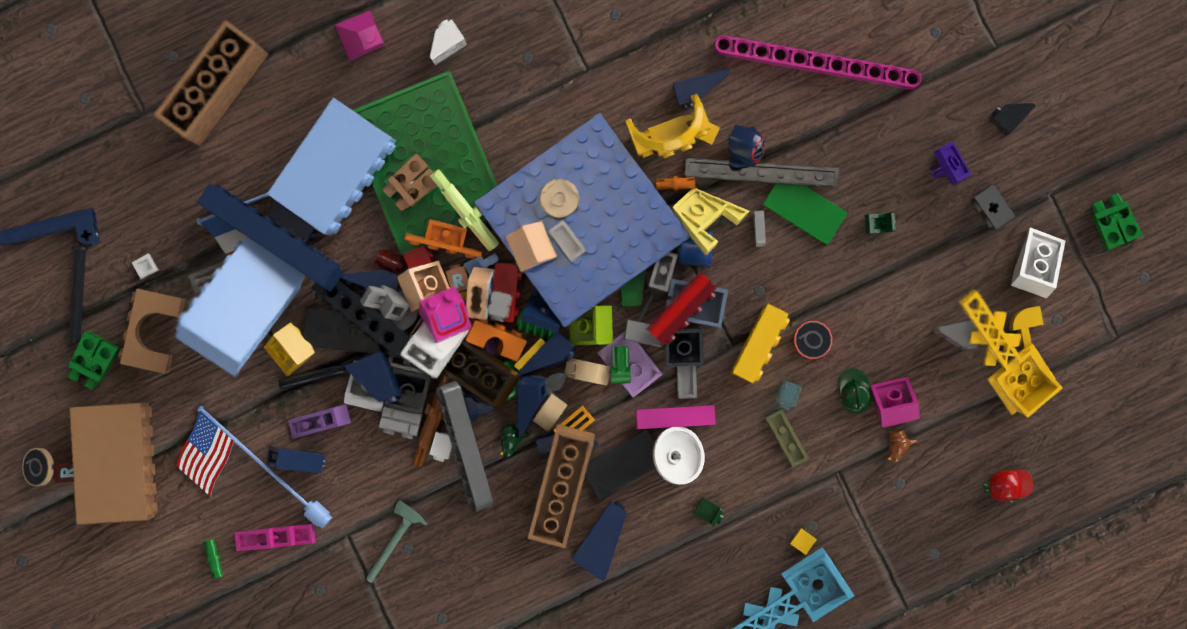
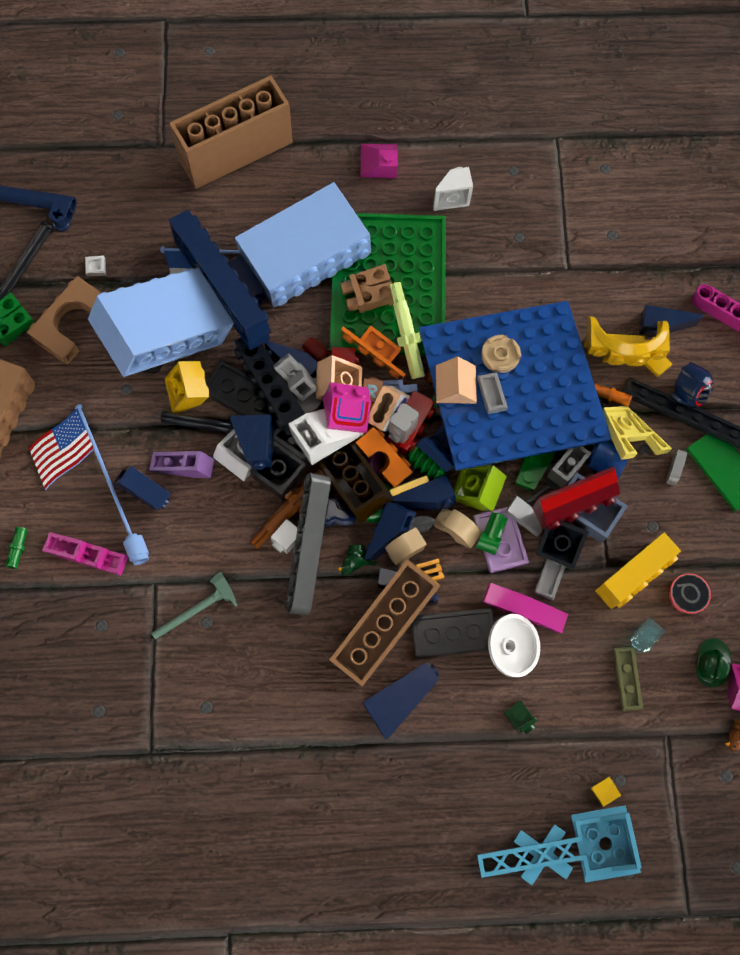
camera: 20 degrees right, 15 degrees down
(400, 421) = (257, 496): light grey brick -> none

